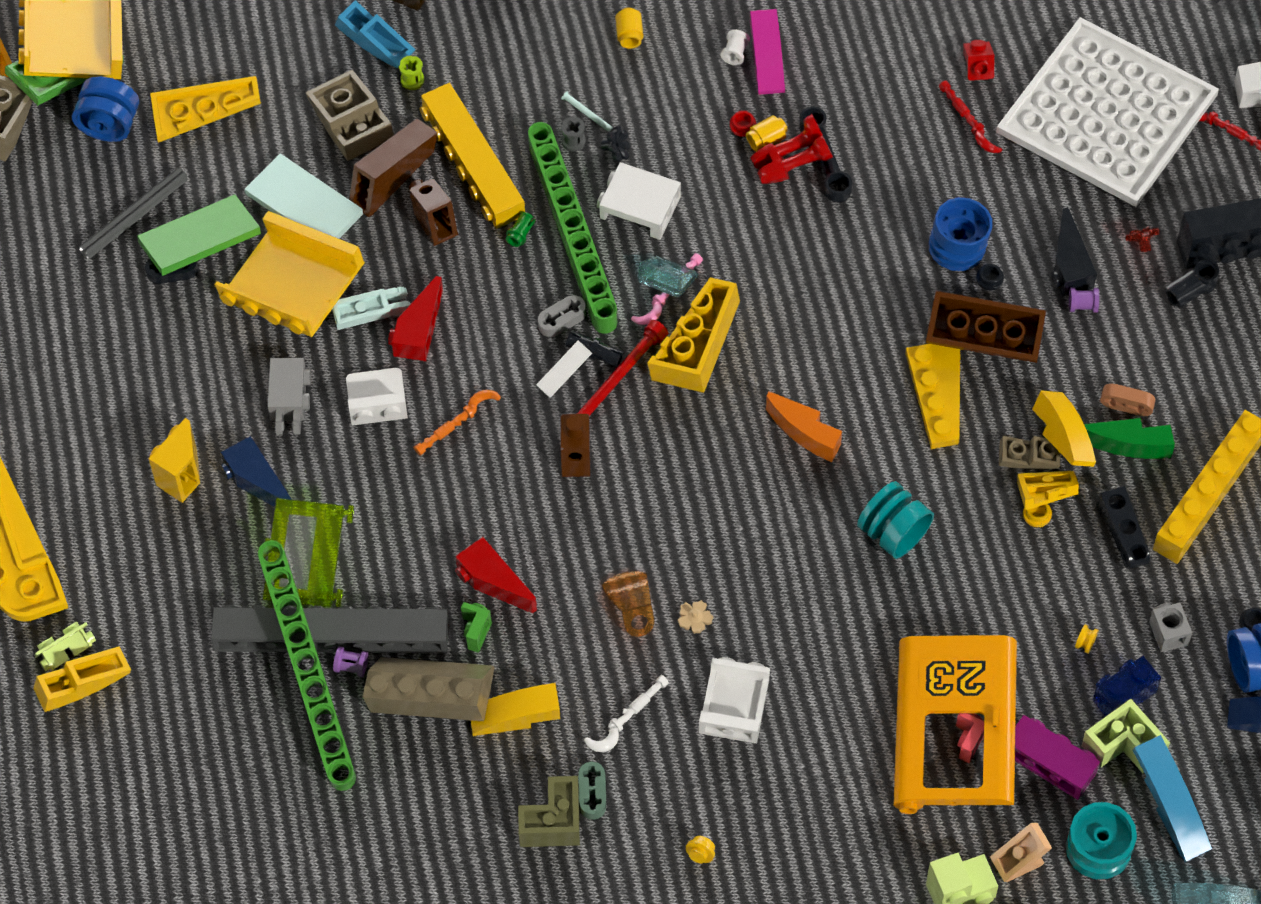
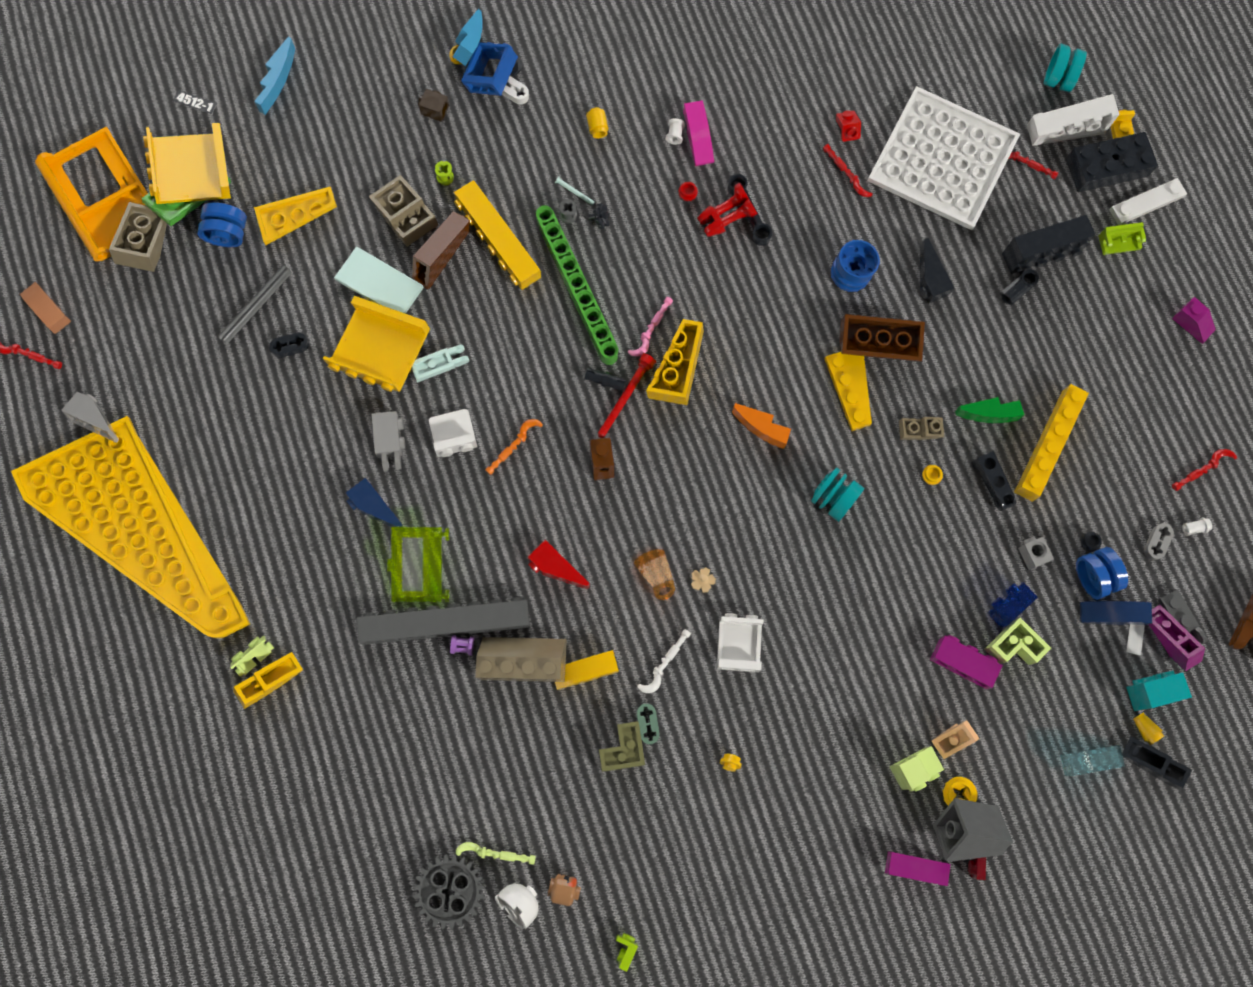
camera: 15 degrees left, 15 degrees up
(176, 462) = (314, 503): yellow slope -> none
(198, 234) = (305, 318): bright green tile -> none
(308, 678) = (431, 668): bright green beam -> none
(373, 34) = (413, 145): dark azure slope -> none
(416, 324) = (474, 374): red slope -> none
(430, 198) = (472, 277): reddish brown torso -> none
(478, 624) = (549, 609): bright green bracket -> none
(517, 234) = (537, 294): green pin -> none
(562, 316) = (575, 352): light grey beam -> none
(564, 369) = (585, 397): white sticker -> none
(640, 198) = (622, 258): white panel -> none
(666, 275) = (649, 317): clear light blue slope -> none
(767, 131) = (707, 196): yellow brick -> none
(956, 677) = (897, 613): light orange piece -> none
(972, 735) = (909, 655): coral bracket -> none
(990, 277) = (877, 295): black plate -> none
(1046, 487) = (937, 455): yellow wing -> none
(1064, 428) = (946, 410): yellow slope -> none
(1083, 300) = (945, 306): medium lavender bush -> none
(1086, 638) = (979, 568): yellow bush -> none
(1101, 840) = (1013, 713): teal wheel -> none
(1127, 399) = (985, 381): nougat beam -> none
(1143, 237) = (980, 253): clear red plant -> none
(1172, 798) = (1055, 687): dark azure slope -> none

